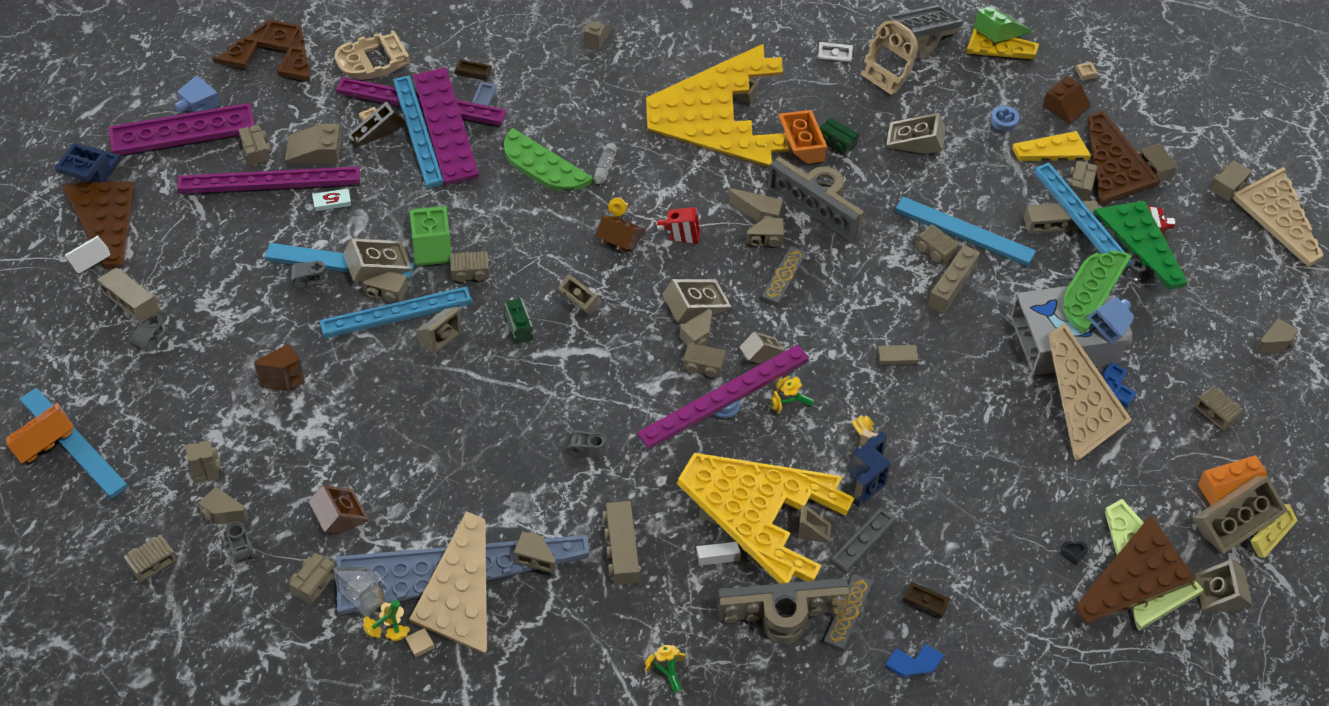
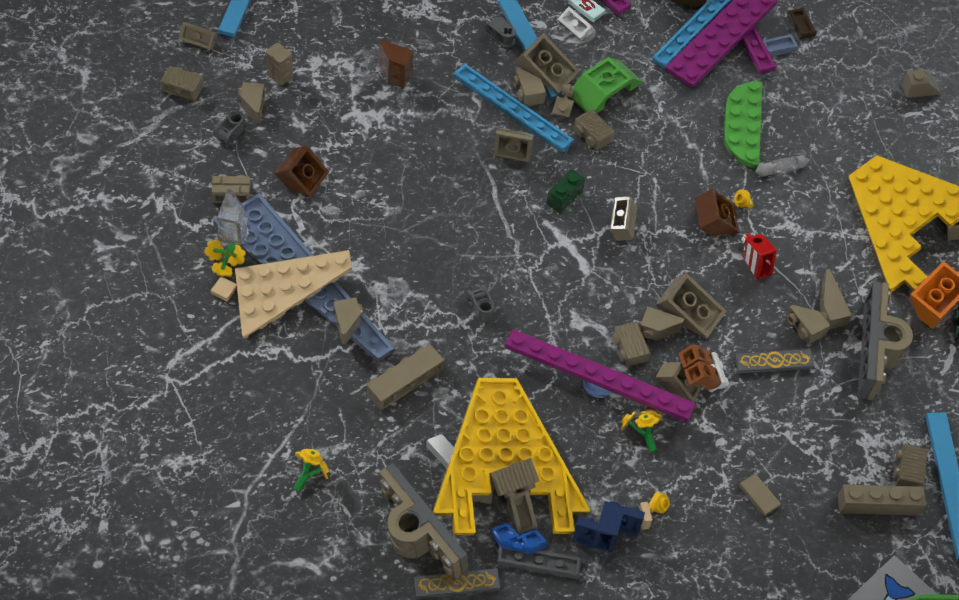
camera: 55 degrees right, 5 degrees up
(102, 516) = (197, 35): none -> dark tan plate
(343, 217) = (576, 23): none -> white slope
(426, 274) = (564, 106): none -> dark tan plate
(773, 321) = (703, 368): none -> dark orange hips
(790, 506) = (515, 477): none -> dark tan brick
(831, 550) = (509, 539): none -> blue tile

